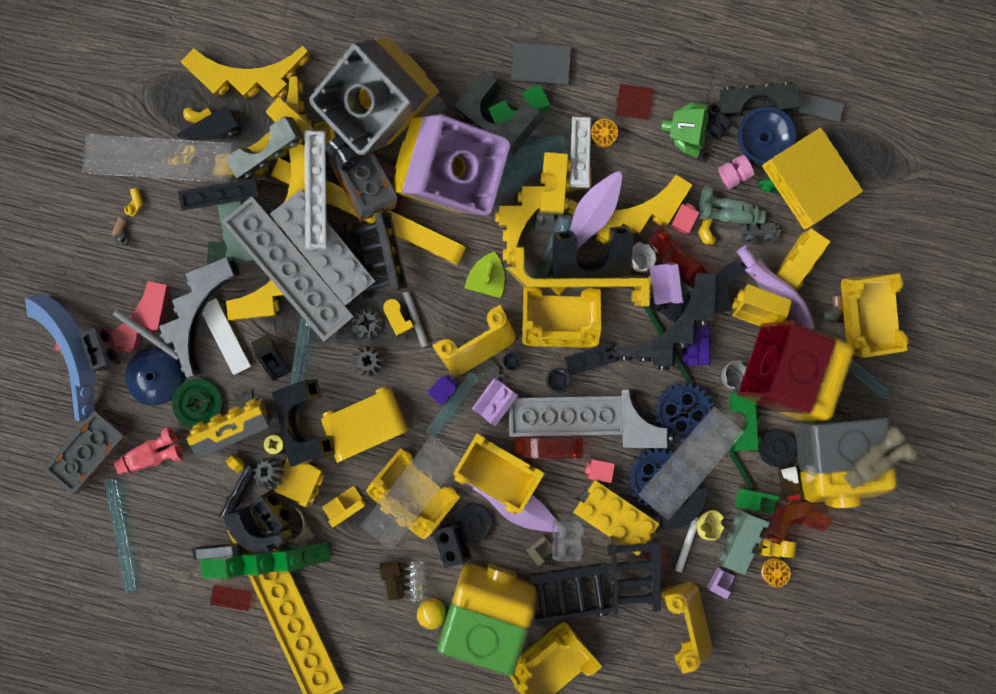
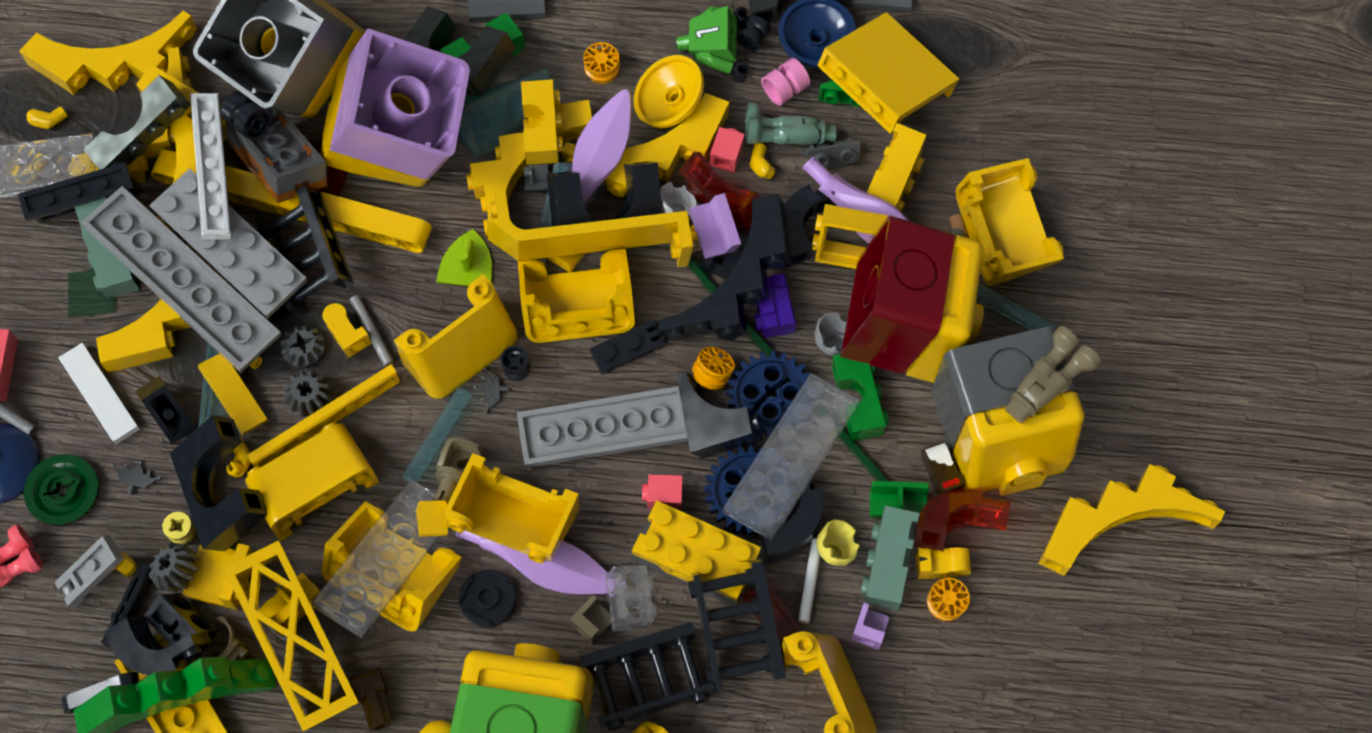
camera: 10 degrees left, 20 degrees down
(183, 331) = (44, 353): arch -> none
(214, 468) = (89, 571): none -> light grey plate
(215, 126) = (73, 119): black slope -> none
(229, 428) = (107, 508): piece -> none
(316, 354) = (232, 393): none -> yellow tile
(318, 404) = (240, 463): none -> yellow arm
(323, 493) = (256, 564): none -> yellow piece
(377, 381) = (328, 414): none -> yellow tile
(417, 581) = (409, 694): clear piece -> none
(443, 389) = (418, 410): dark purple brick -> none
(443, 469) = (431, 518): none -> yellow slope
(451, 545) = (463, 626): black brick -> none
(457, 434) = (453, 458): none -> dark tan piece
(494, 401) = (496, 419): lavender bracket -> none
(548, 448) = (584, 465): clear red arch -> none
(558, 380) = (584, 376): black wheel -> none
(580, 152) = (572, 85): white tile -> none
(634, 102) = (636, 24): clear red piece -> none
(641, 163) = (668, 91): none -> yellow dish
(646, 387) = (712, 370): none -> light orange wheel
(777, 448) = (914, 426): black tile -> none
(927, 523) = (1119, 504): none -> yellow arch

